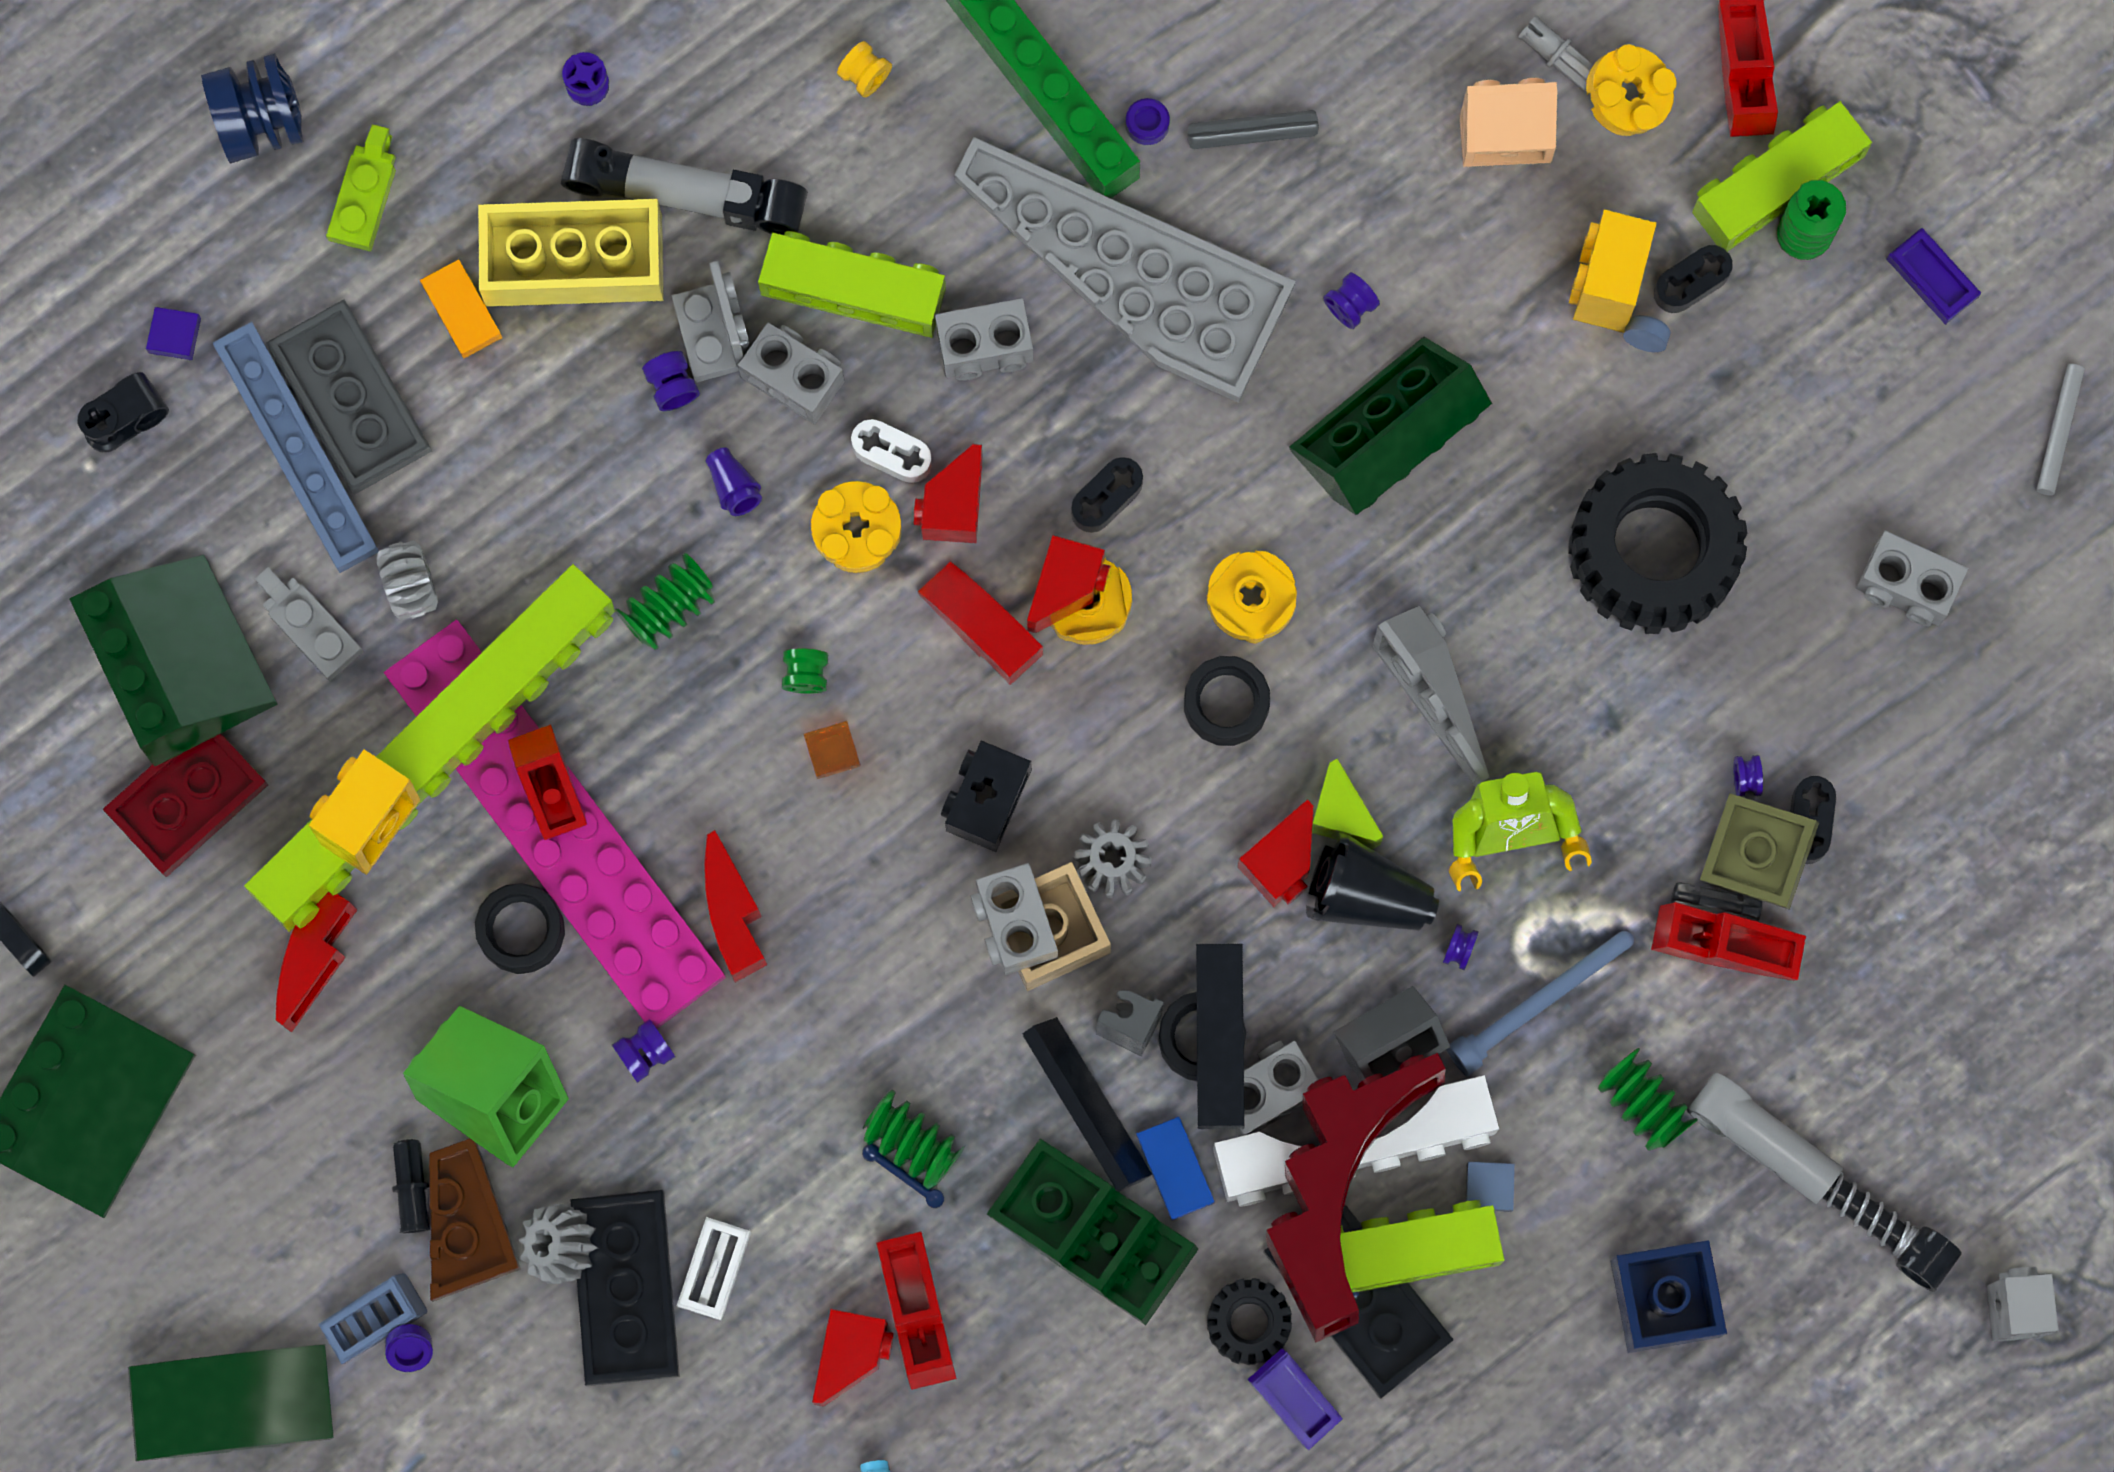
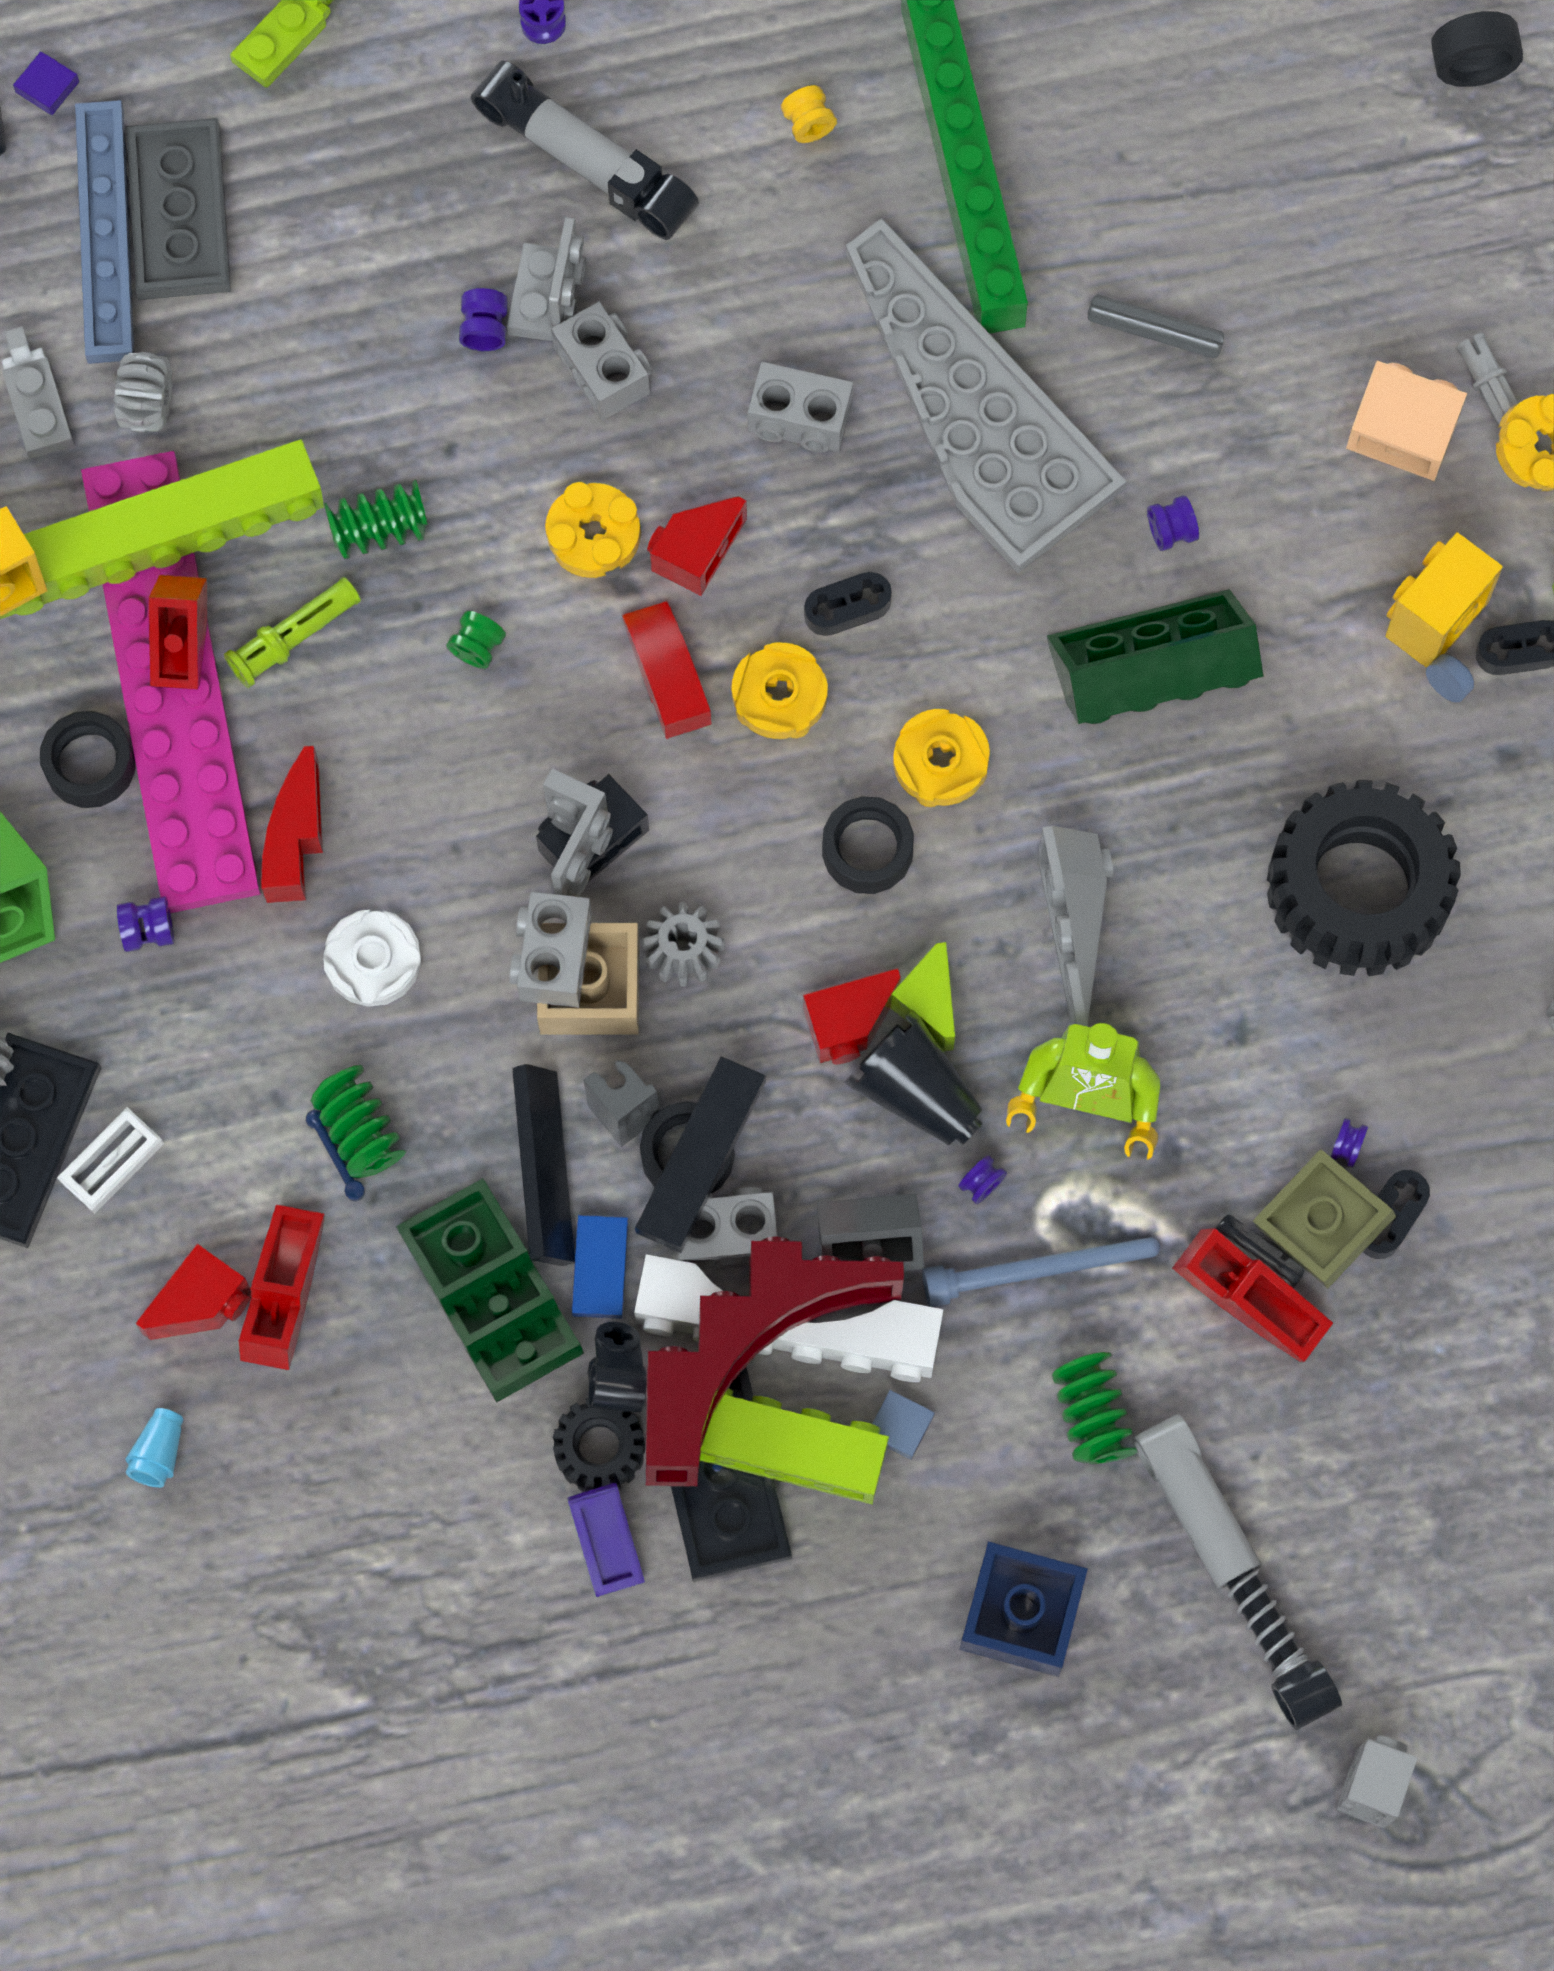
camera: 25 degrees right, 5 degrees down
(461, 309) = (322, 173): light orange tile -> none
(570, 252) = (447, 161): light yellow brick -> none
(635, 757) = (274, 643): none -> lime pin
(734, 485) = (495, 440): dark purple cone -> none
(832, 750) = (466, 726): clear orange tile -> none
(850, 990) = (372, 957): none -> white tile
(852, 283) = (698, 303): lime brick -> none
(896, 442) = (668, 468): white beam -> none
(981, 785) = (583, 815): none -> light grey bracket
(1067, 582) = (762, 662): red slope -> none
(1147, 121) = (1057, 277): dark purple tile -> none
(1238, 1252) = (617, 1371): none -> black piece

